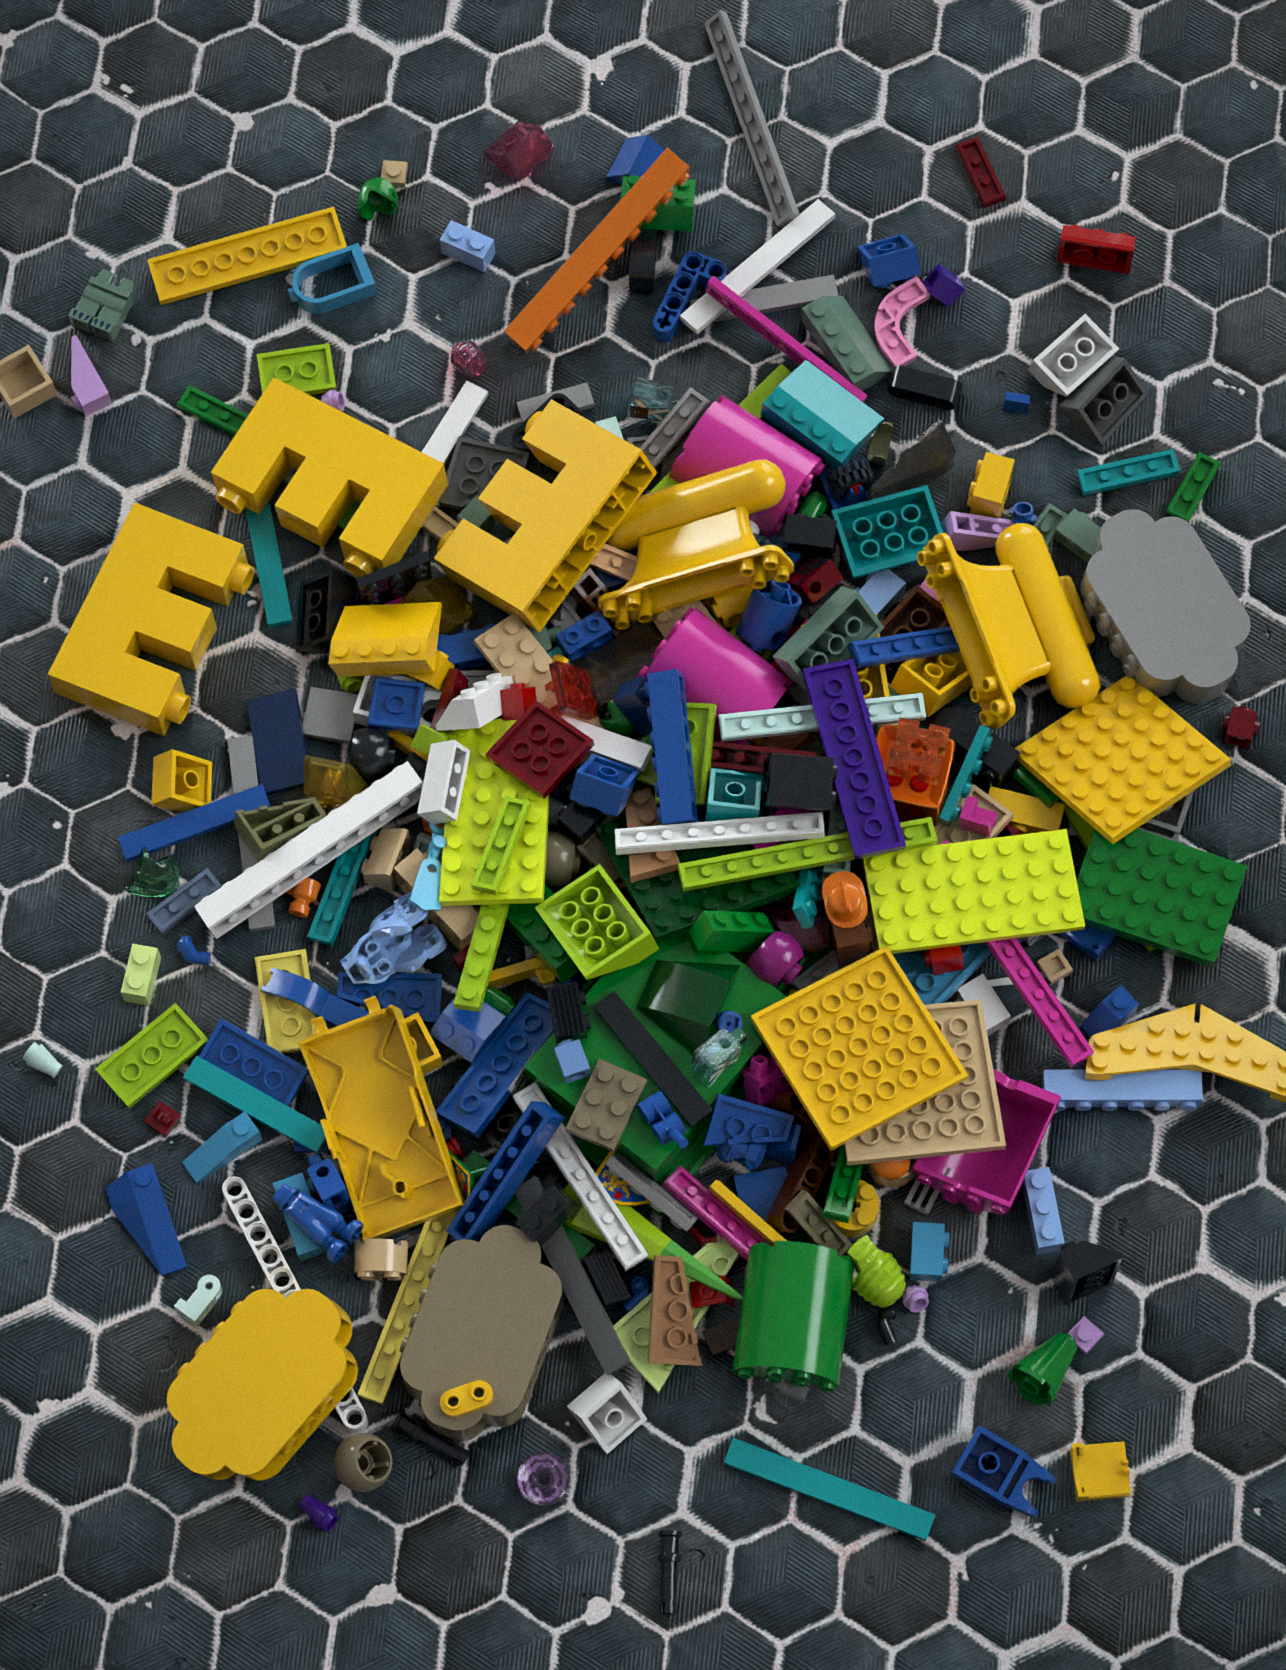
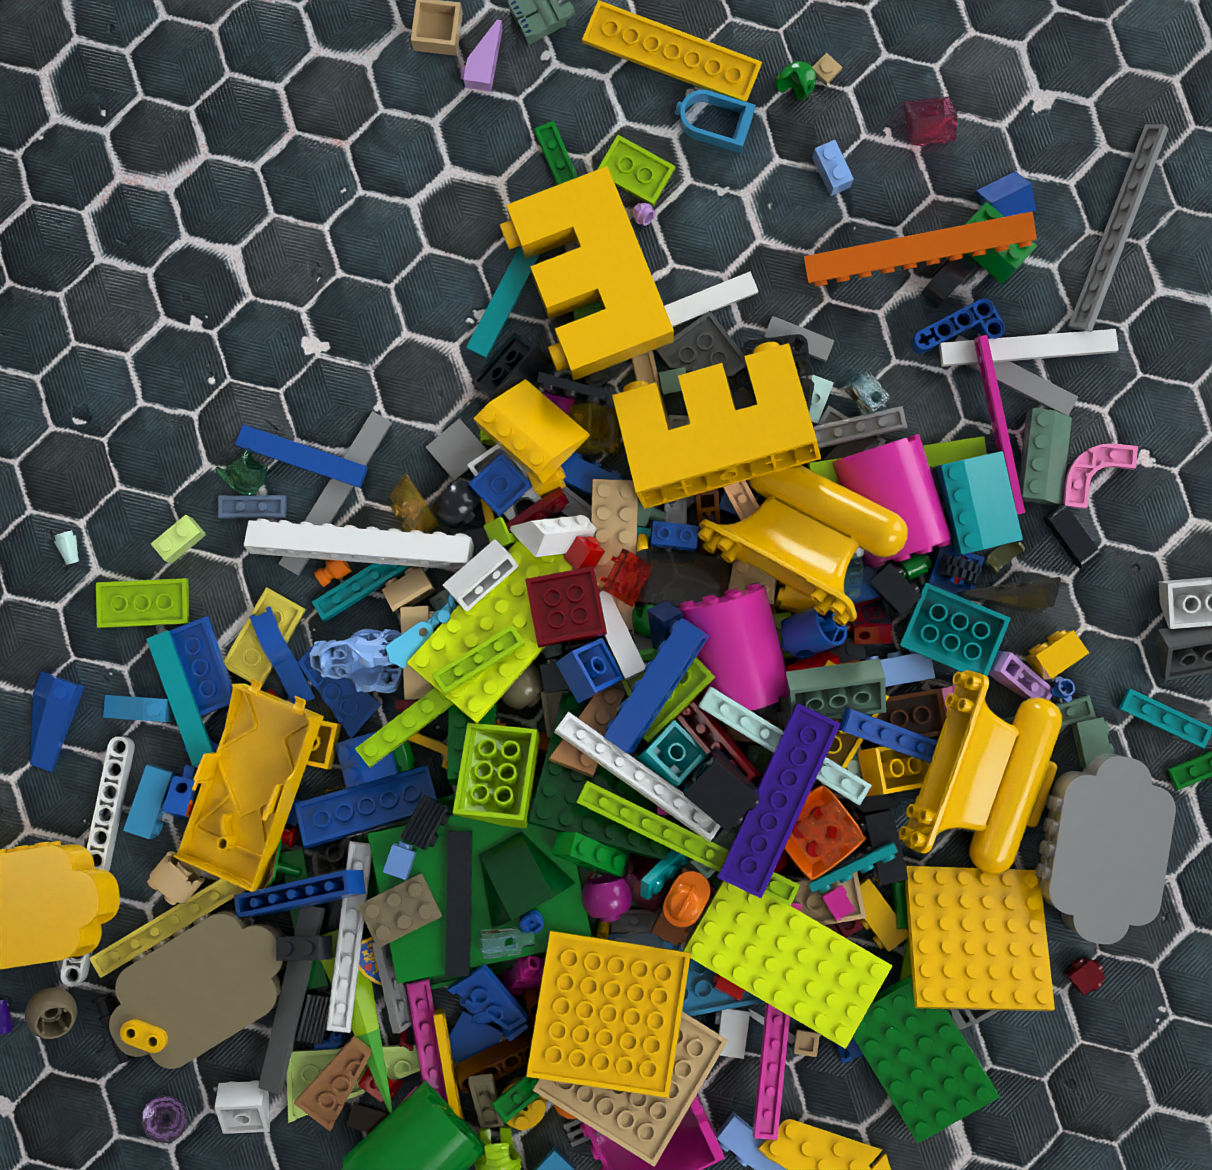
camera: 40 degrees right, 15 degrees up
(135, 612) = (376, 264): yellow brick -> none
(162, 1119) = (116, 653): dark red tile -> none
(181, 781) = (316, 419): yellow slope -> none
(190, 953) = (225, 549): blue arm -> none
(201, 1301) = (46, 804): light aqua leg -> none
(272, 827) = (349, 507): olive wedge -> none
(278, 740) = (405, 440): dark blue tile -> none
(318, 1221) = (150, 819): blue piece -> none
(467, 358) = (764, 256): clear pink head -> none
(664, 1124) = (428, 959): blue beam -> none
(889, 260) = (1128, 418): blue slope -> none
(944, 285) = (1151, 468): dark purple panel -> none
(1016, 403) = (1129, 601): blue tile -> none
(1111, 1012) = (815, 1110): blue slope -> none

